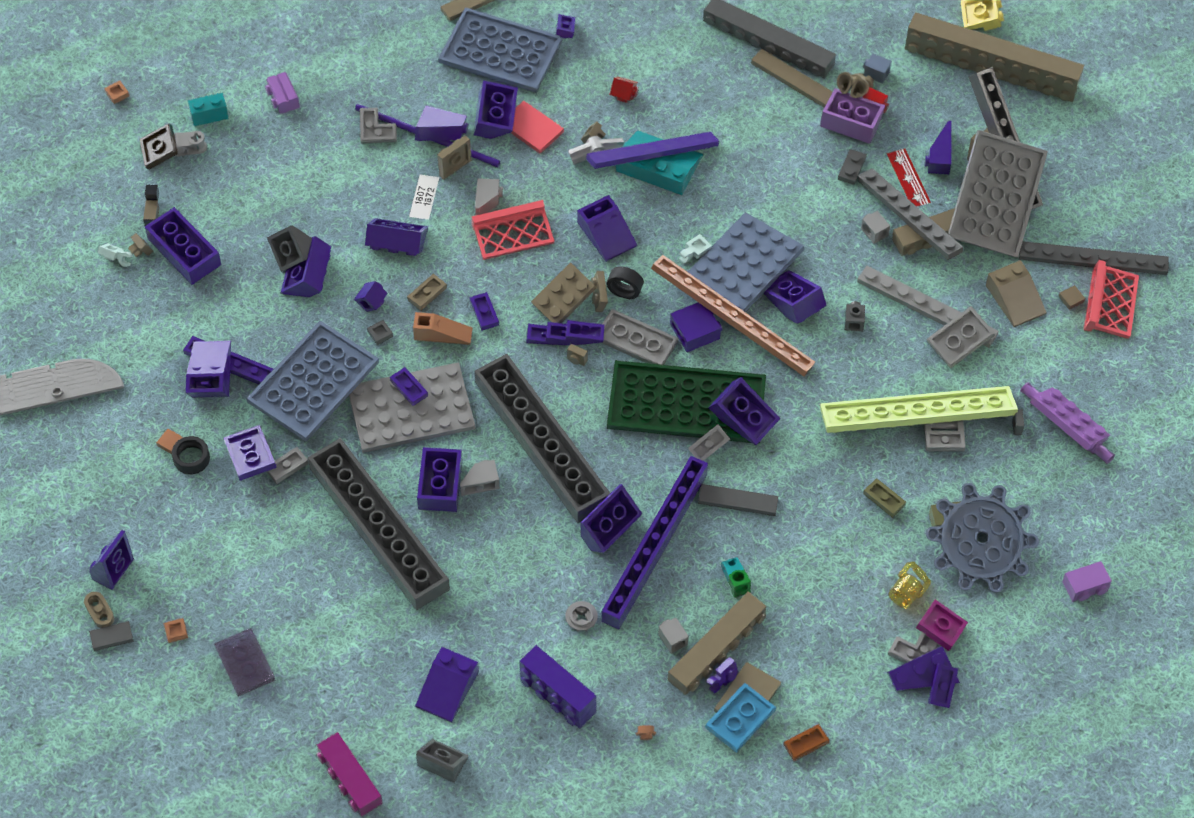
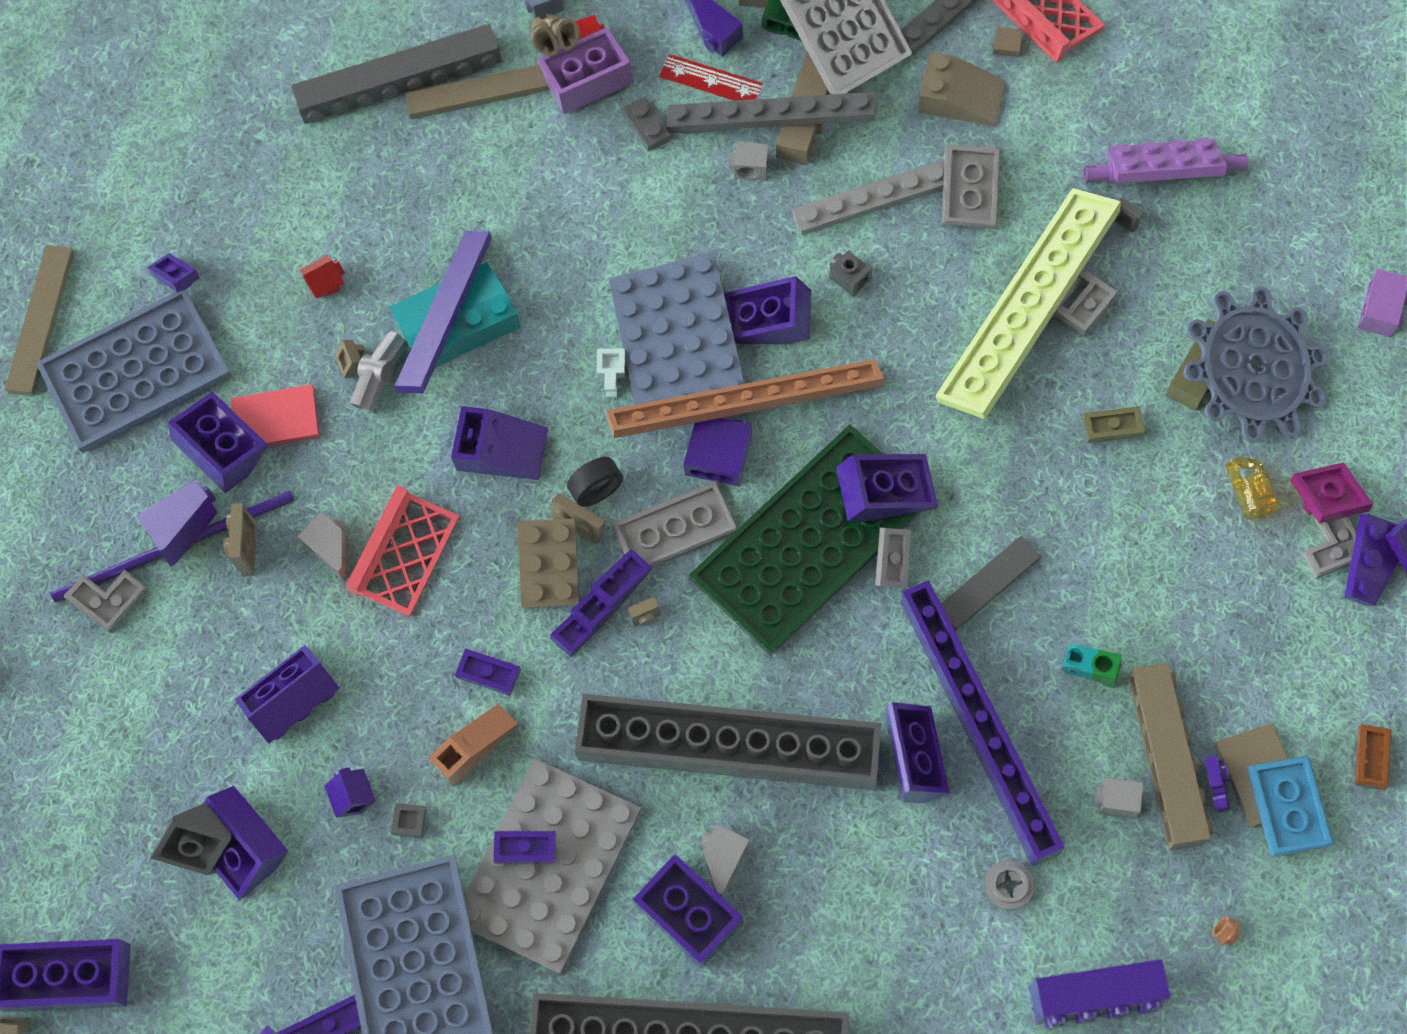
camera: 45 degrees left, 10 degrees up
(424, 197) = (257, 617): white sticker -> none
(427, 292) = (400, 719): dark tan plate -> none

